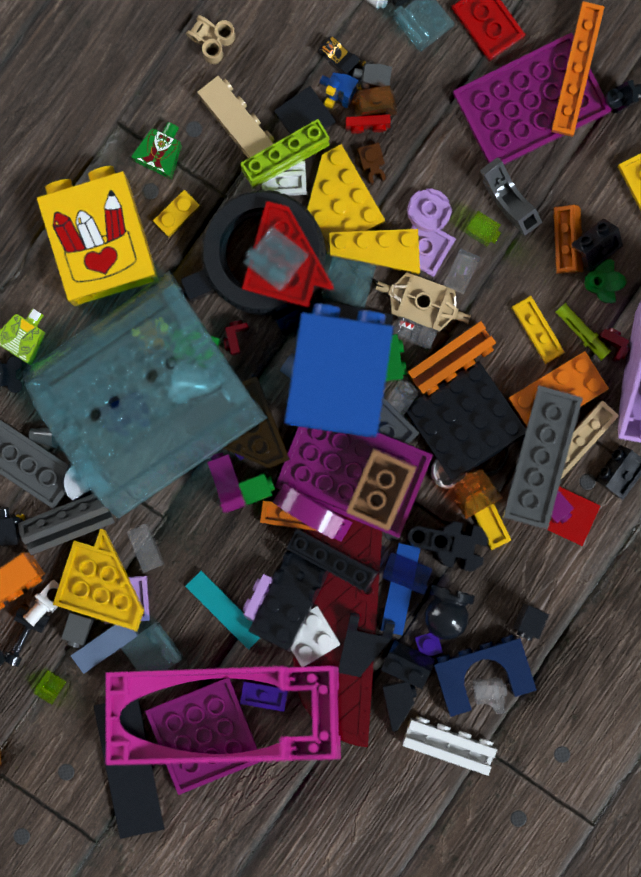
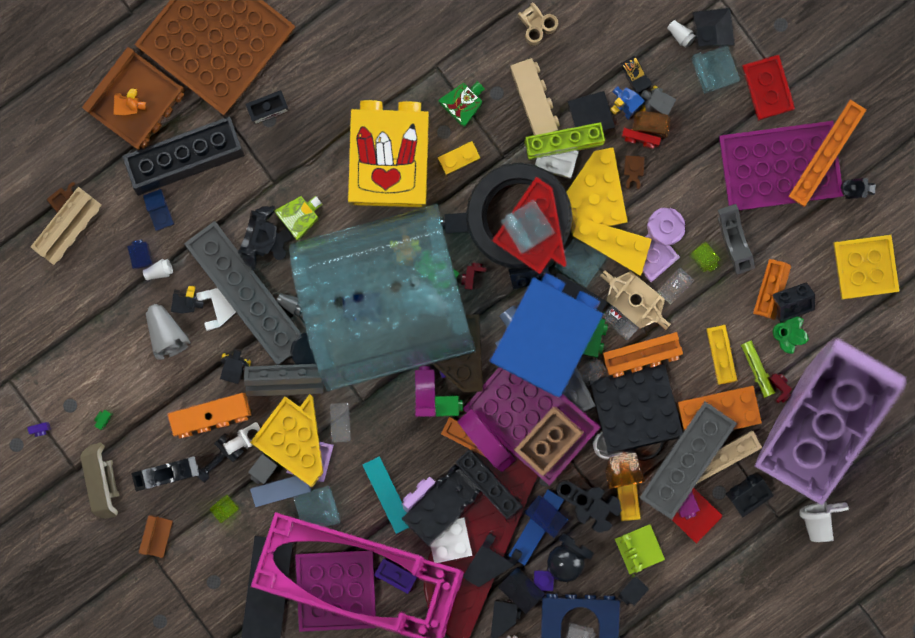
camera: 20 degrees right, 0 degrees up
(522, 574) = (639, 549): none -> lime hinge

